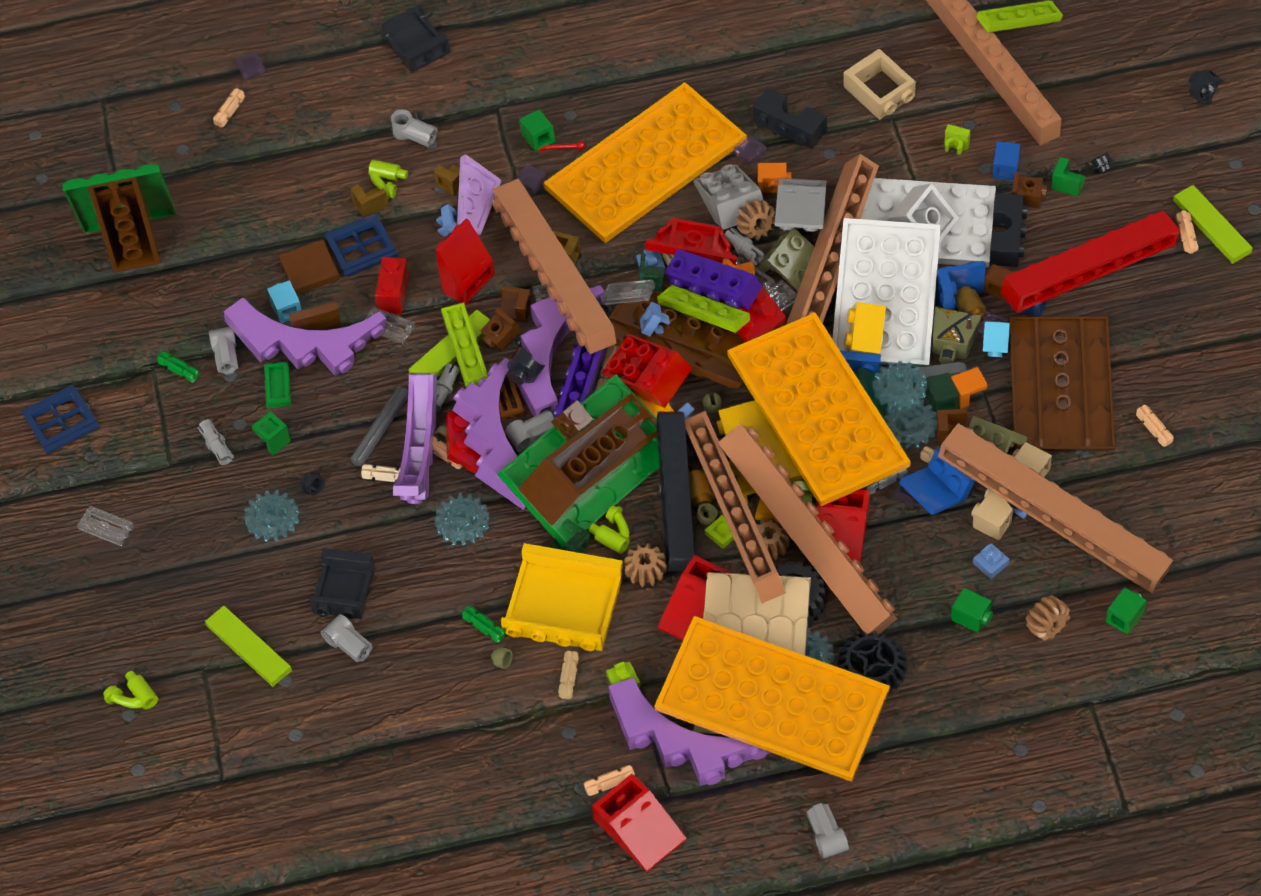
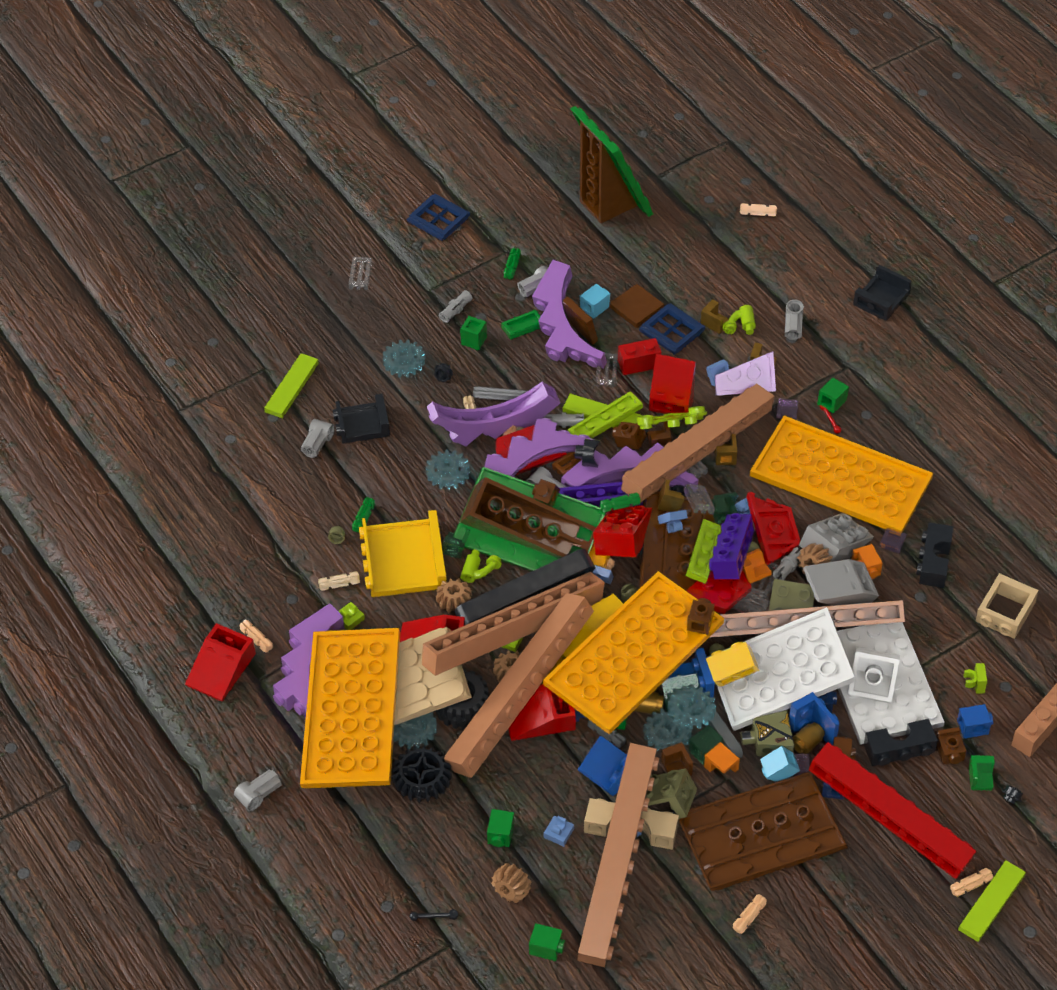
camera: 65 degrees right, 5 degrees down
(140, 689) = (230, 339): lime plant -> none
(250, 66) = (804, 209): clear purple tile -> none
(503, 258) = (673, 419): none -> lime plant
(614, 357) = (620, 502): none -> green axle
(623, 315) = (669, 500): none -> pearl gold panel
(810, 328) = (700, 616): none -> reddish brown brick
(1055, 690) = (453, 914): none -> black hinge

